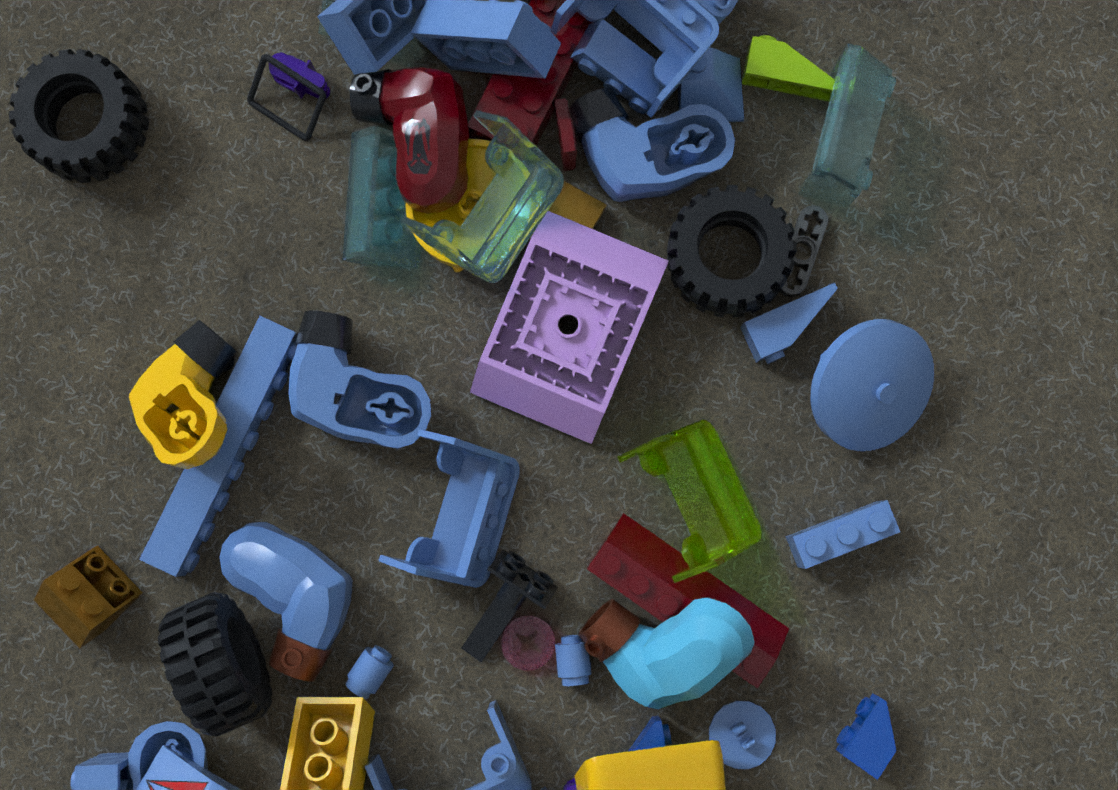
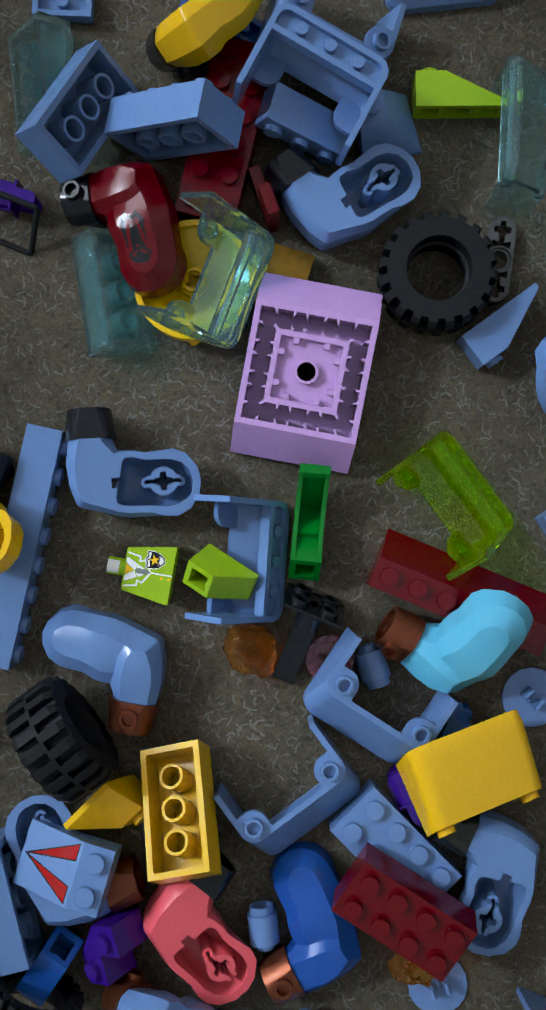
camera: 15 degrees left, 5 degrees up
(251, 751) = (111, 806): none -> yellow slope
(351, 503) = (147, 572): none -> lime torso
(369, 671) = (197, 714): medium blue brick -> none
(427, 523) = (219, 575): none -> lime slope
(443, 613) = (250, 650): none -> clear orange hair
(517, 688) = (331, 696): none -> medium blue windscreen
(537, 486) = (309, 522): none -> green arch

